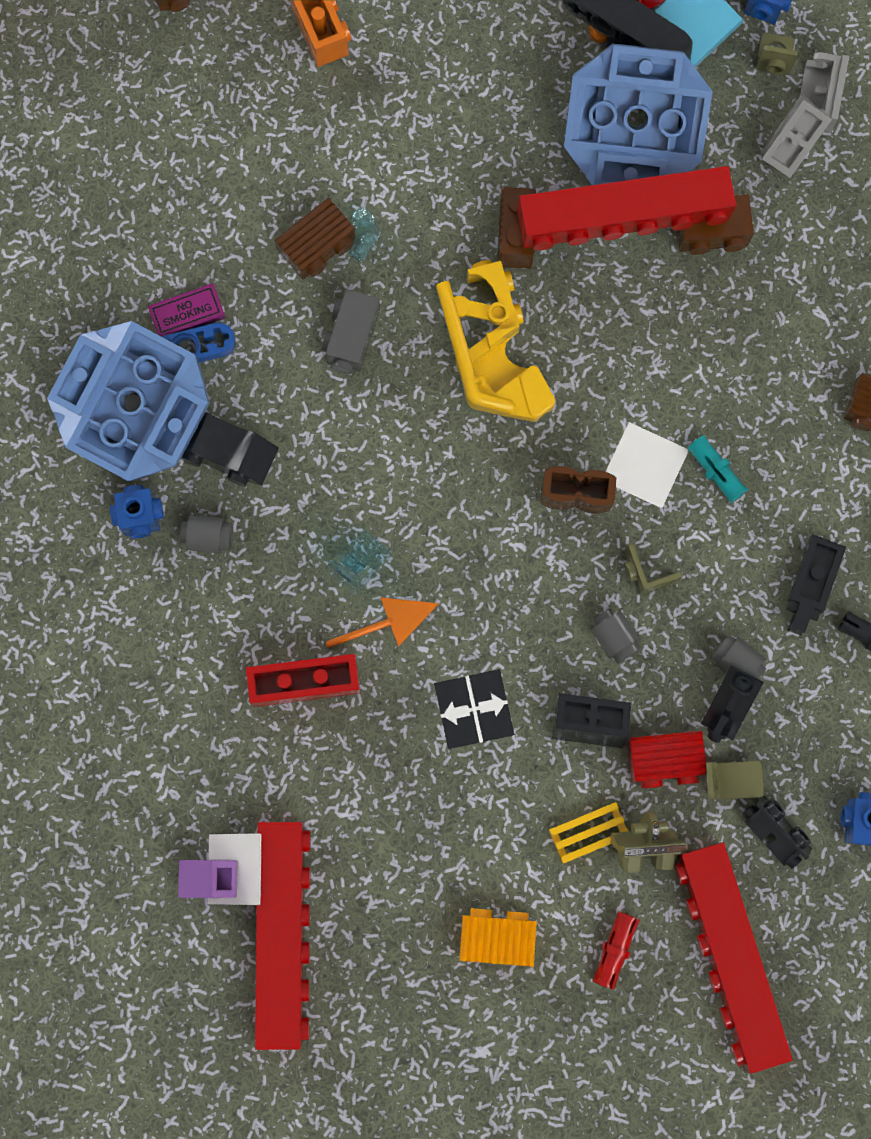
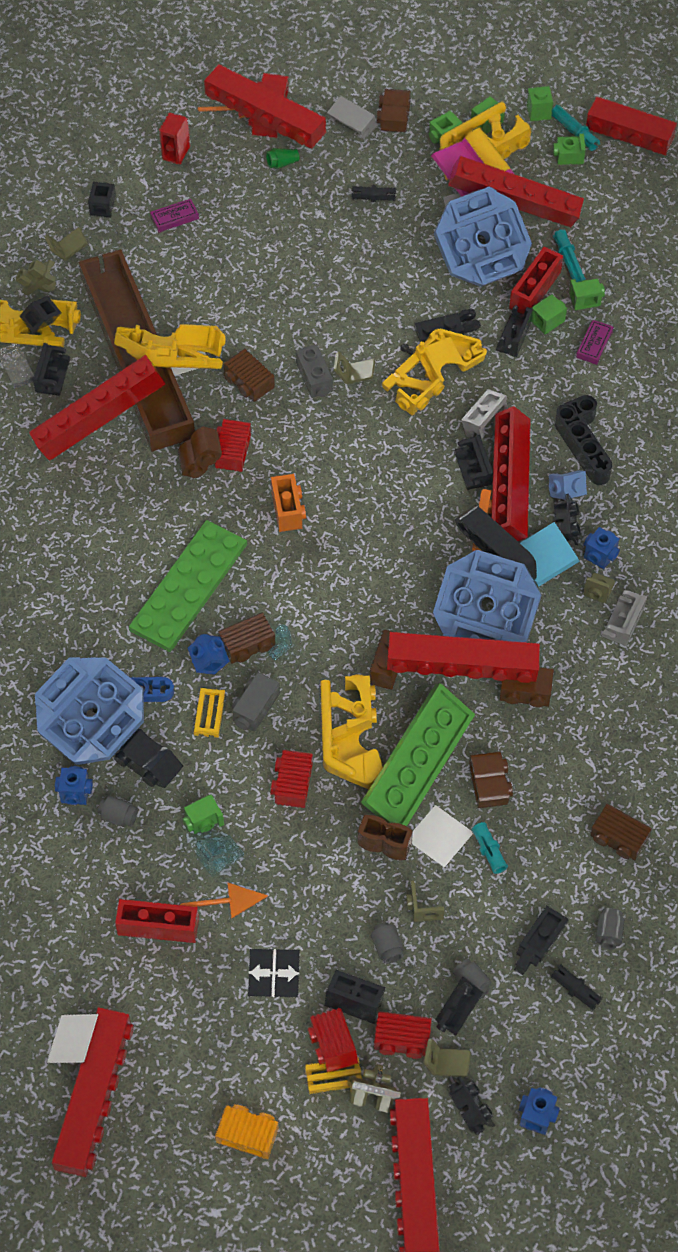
camera: 15 degrees right, 20 degrees down
(187, 311) = (146, 665): magenta tile -> none
(207, 878) = (51, 1039): medium lavender brick -> none
(213, 177) = (188, 586): none -> bright green plate
(269, 276) = (208, 654): none -> blue brick
(295, 388) = (207, 730): none -> yellow tile
(323, 513) = (202, 815): none -> bright green brick
(432, 431) = (293, 778): none -> red brick
(580, 791) = (333, 1040): none -> red brick
(594, 364) = (418, 757): none -> bright green plate
(616, 950) = (331, 1160): red pin -> none
(695, 372) = (489, 779): none -> reddish brown brick
(795, 136) = (596, 639): light grey hinge -> none

